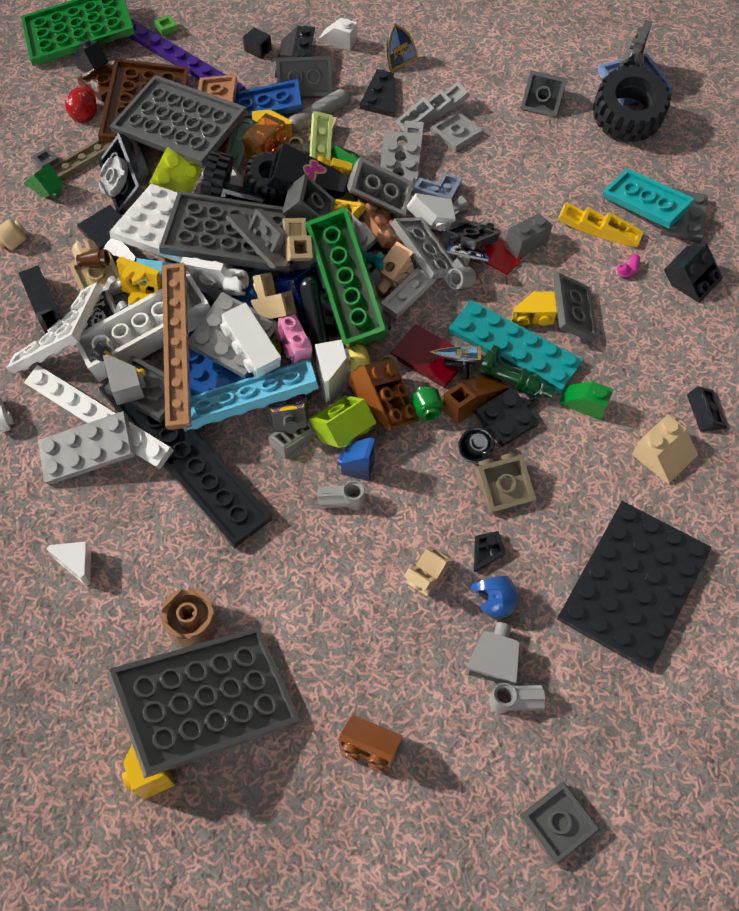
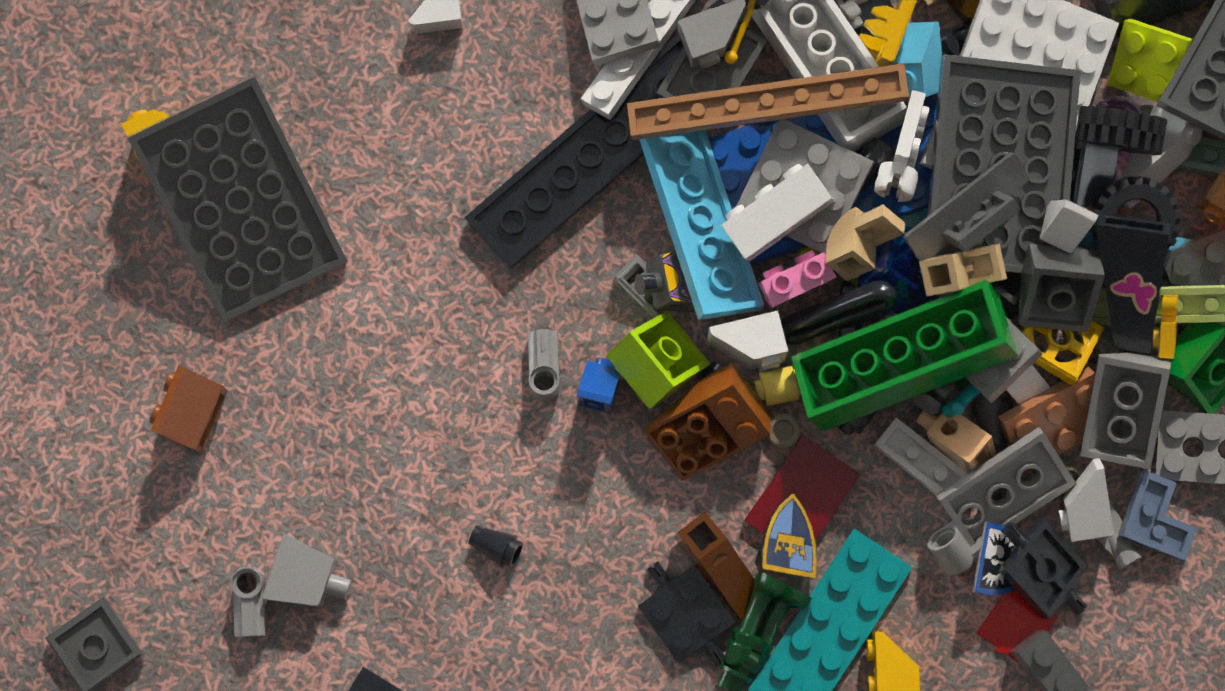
camera: 90 degrees right, 20 degrees up
(189, 604) = (354, 150): medium nougat brick -> none
(271, 191) = (1066, 224): none -> white slope
(427, 403) = (702, 490): green head -> none
(428, 570) = (424, 486): tan brick -> none
(467, 526) = (496, 545): none -> black cone
(476, 444) = (627, 562): black hair -> none
(487, 549) = (465, 574): black piece -> none
(502, 596) = (387, 584): blue helmet -> none
(505, 482) = (568, 602): dark tan plate -> none

